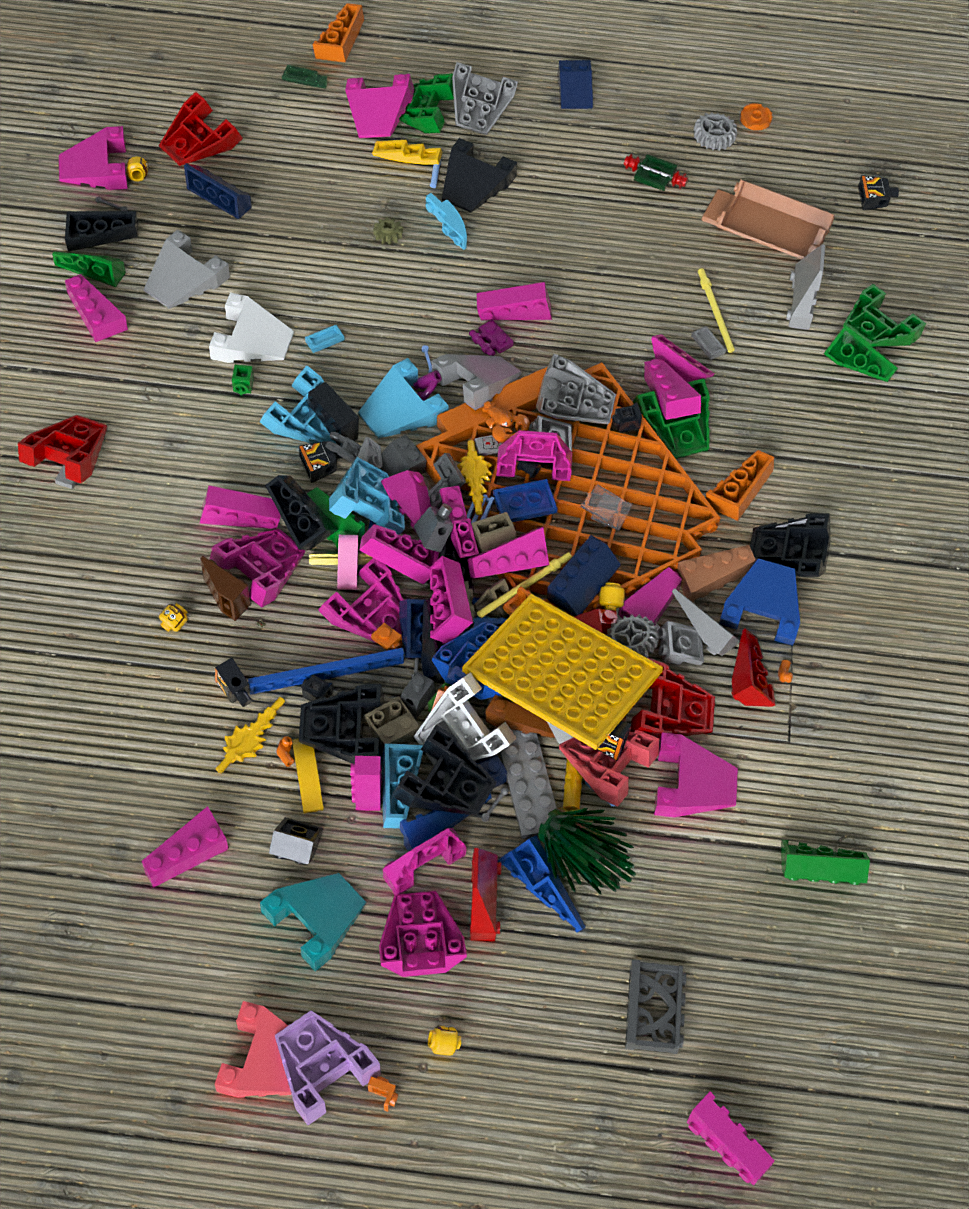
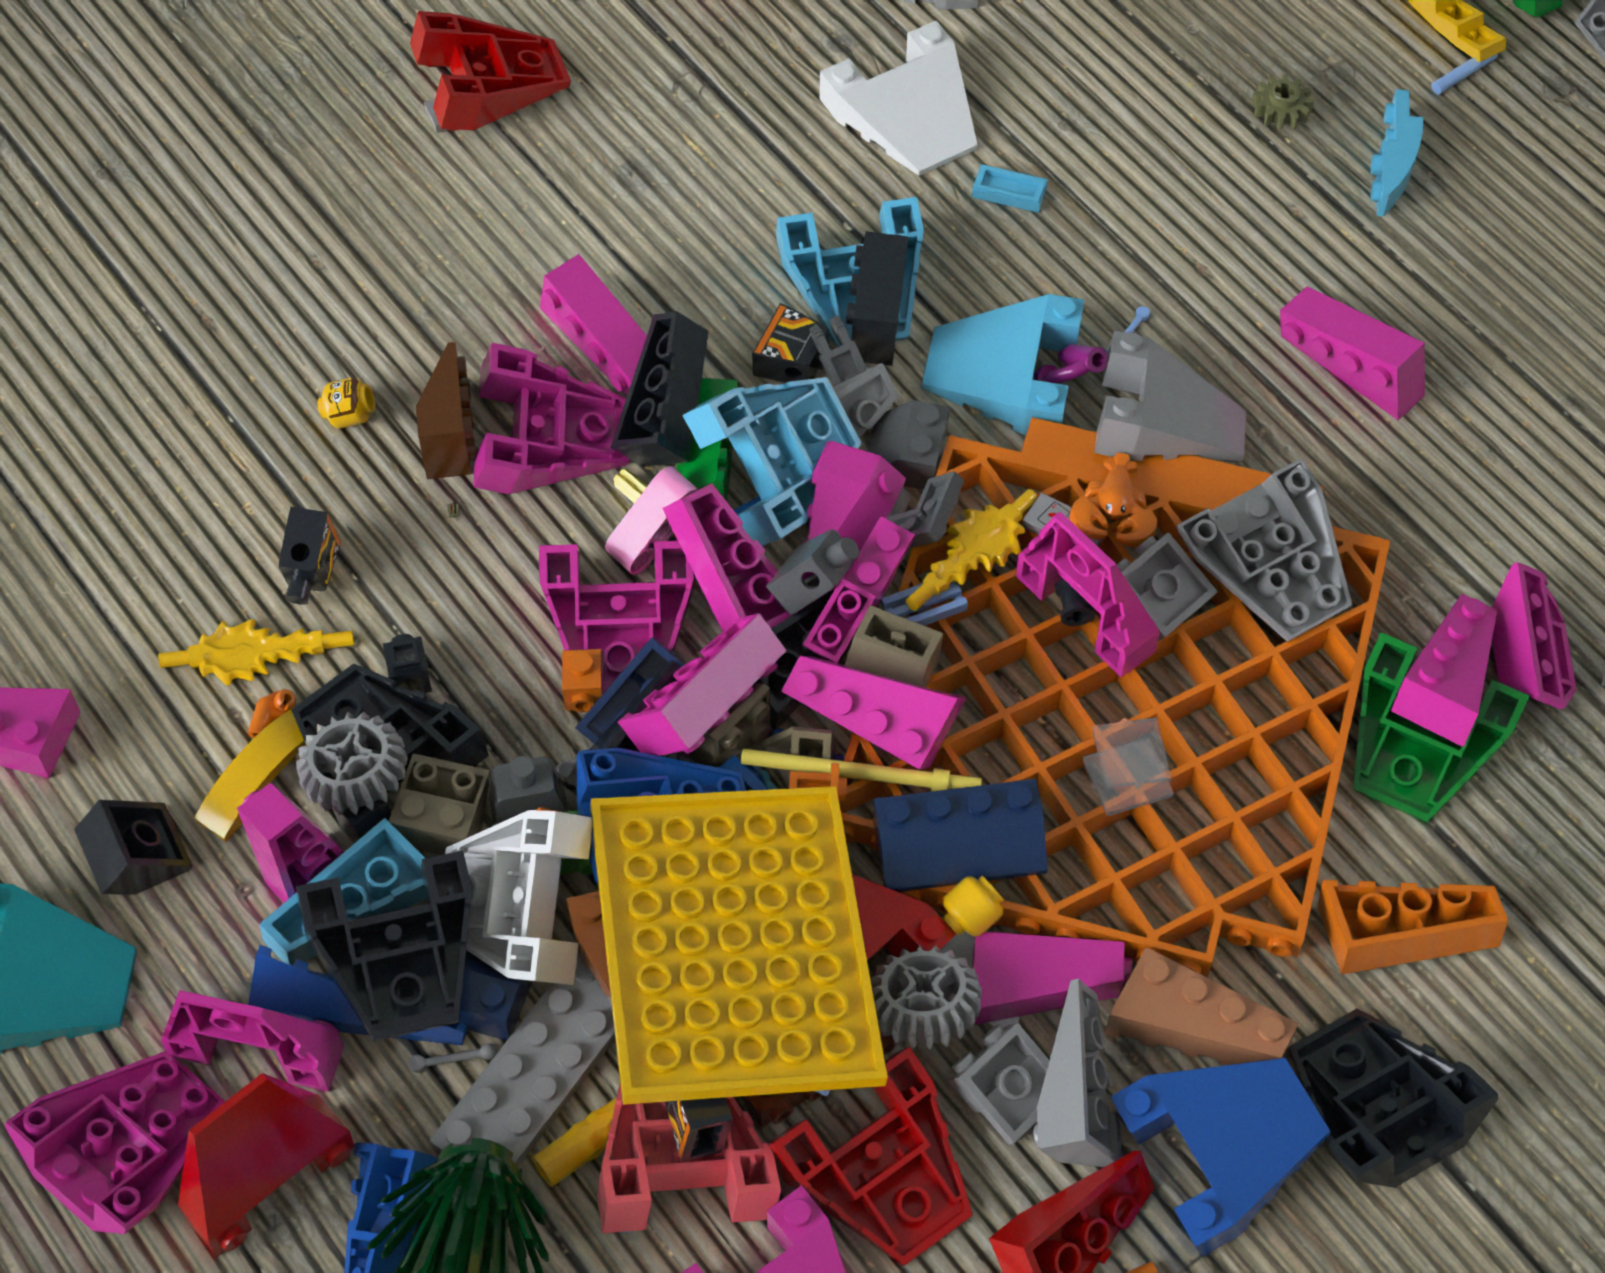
camera: 50 degrees right, 0 degrees up
(242, 379) = (816, 154): green brick -> none
(326, 670) = (453, 651): blue tile -> none
(358, 724) = (358, 771): none -> light grey gear
(474, 181) = (1508, 122): black wedge -> none
(496, 337) = (1272, 379): magenta plate -> none
(526, 500) = (1007, 647): blue plate -> none
(627, 418) = (1321, 654): black window -> none

